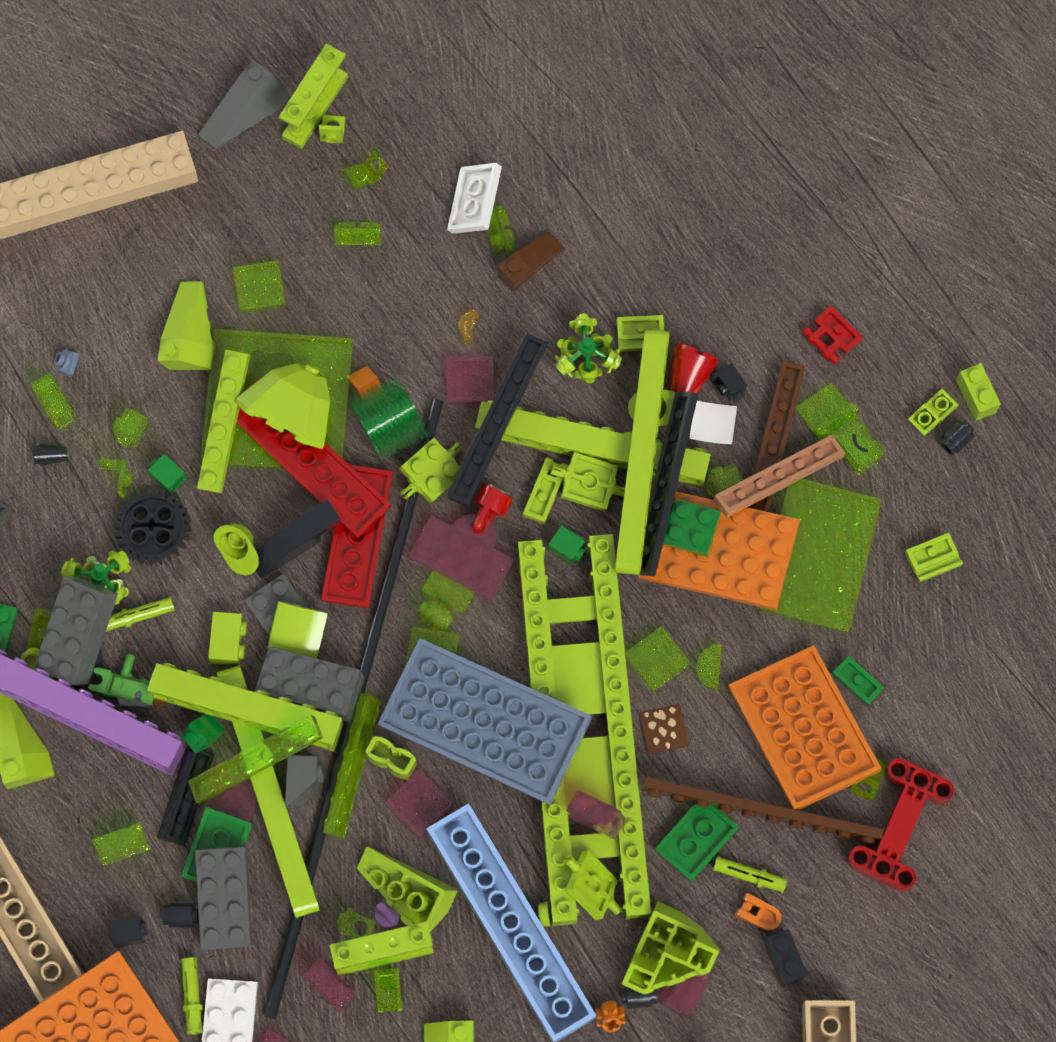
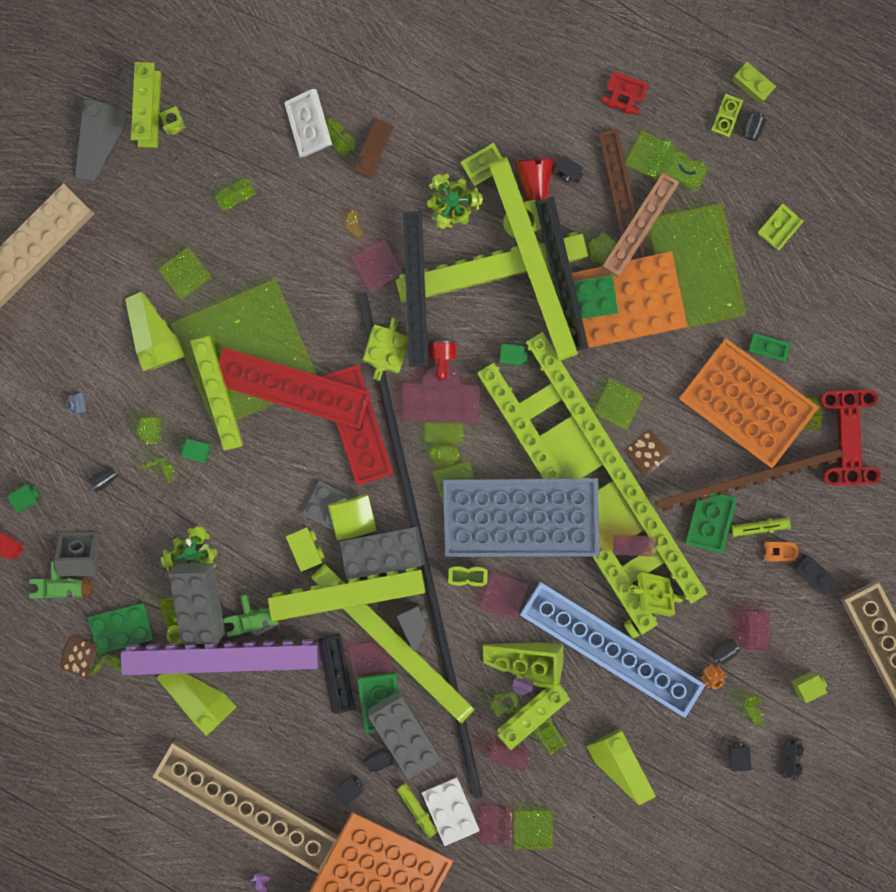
camera: 20 degrees left, 15 degrees up
(53, 401) = (83, 439): clear neon green brick -> none
(121, 844) = (311, 732): clear neon green brick -> none
(140, 613) = (238, 556): lime pin -> none
(151, 548) = (214, 510): black gear -> none
(202, 733) = (325, 626): green brick -> none
(237, 548) = (275, 478): lime piece -> none
(255, 759) = (375, 629): clear neon green plate -> none
(291, 400) = (259, 355): lime brick -> none
(296, 538) = (314, 453): black slope -> none
(351, 767) = (443, 594): clear neon green plate -> none
(364, 380) = (307, 311): orange slope -> none
(365, 173) = (215, 143): clear neon green bracket -> none
(388, 417) = (335, 328): green piece -> none
(543, 493) = (475, 321): lime plate -> none
(588, 481) = (503, 298): lime plate -> none
(669, 951) = (733, 613): lime brick -> none
(709, 666) = (658, 392): clear neon green plate -> none
(713, 423) = (571, 205): white sticker -> none

